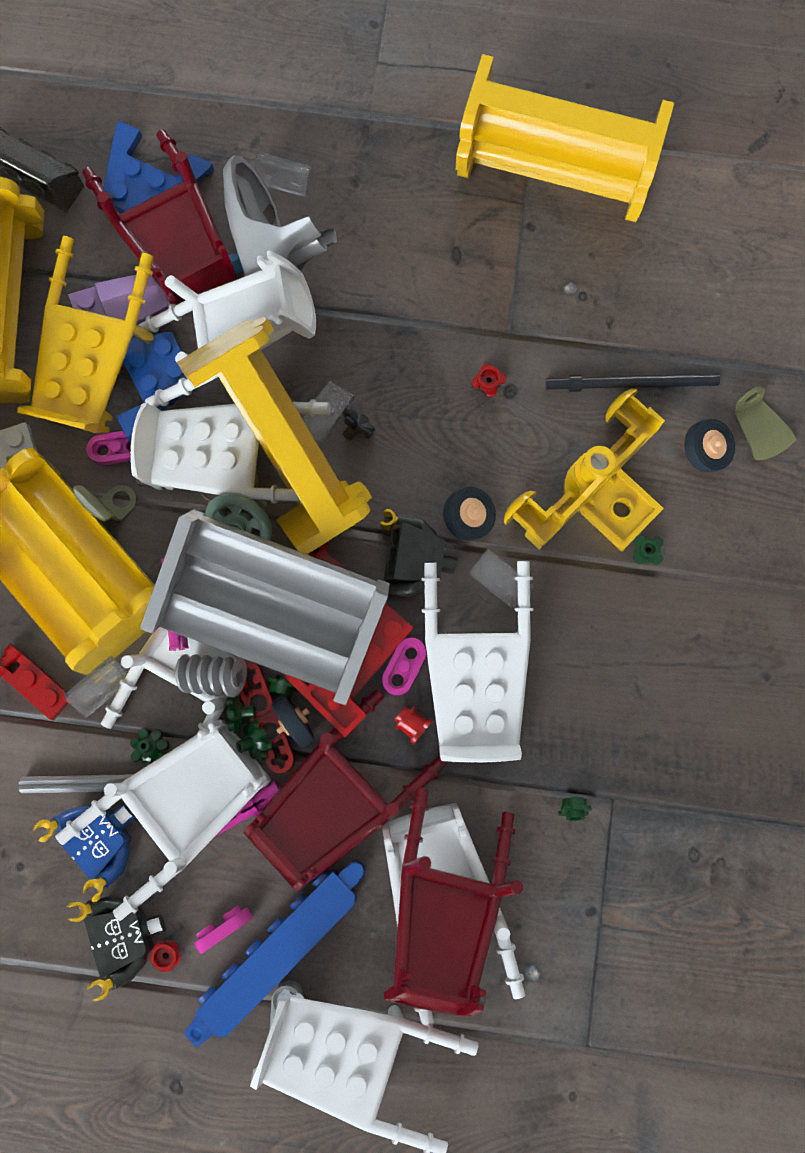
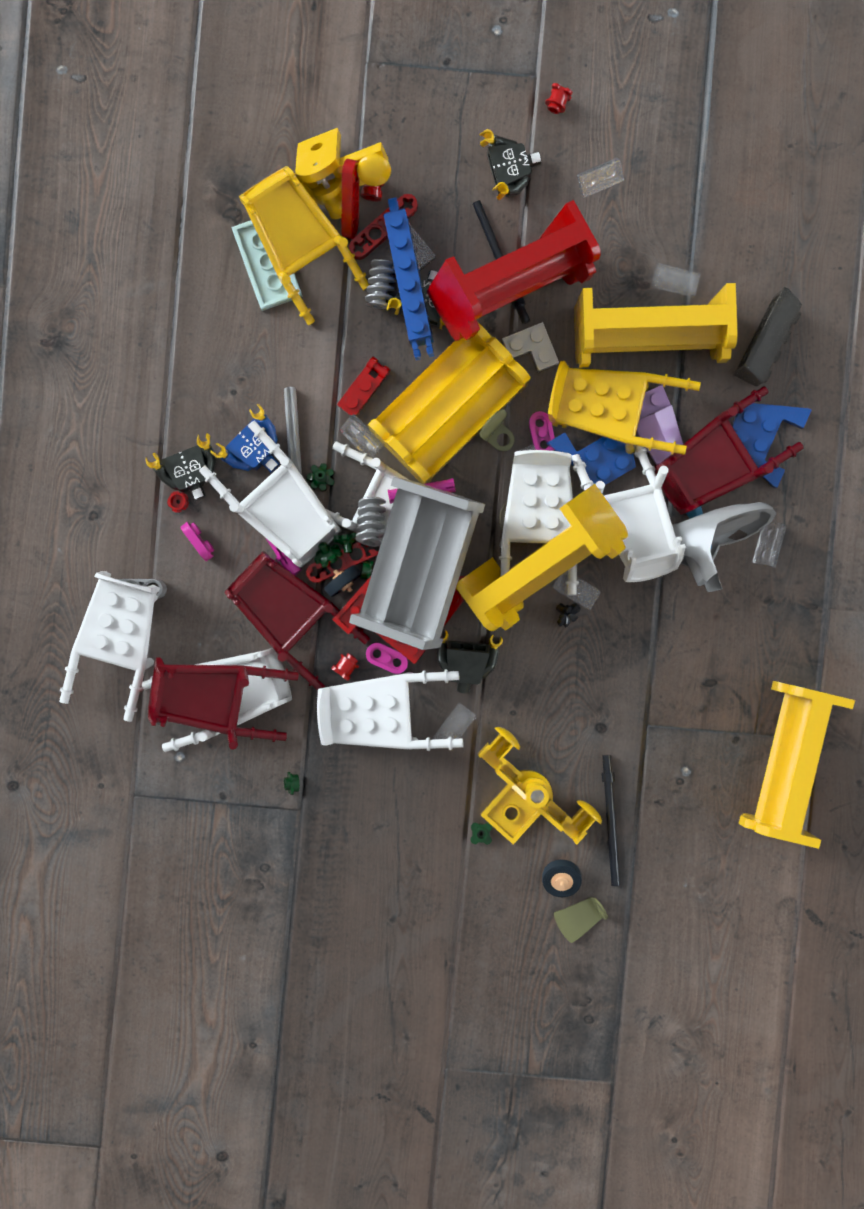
camera: 80 degrees right, 10 degrees up
(239, 518) = (487, 532): sand green plate -> none
(277, 955) = (183, 580): blue hinge -> none
(469, 513) = (501, 701): black wheel -> none
(488, 371) = (601, 712): red plate -> none

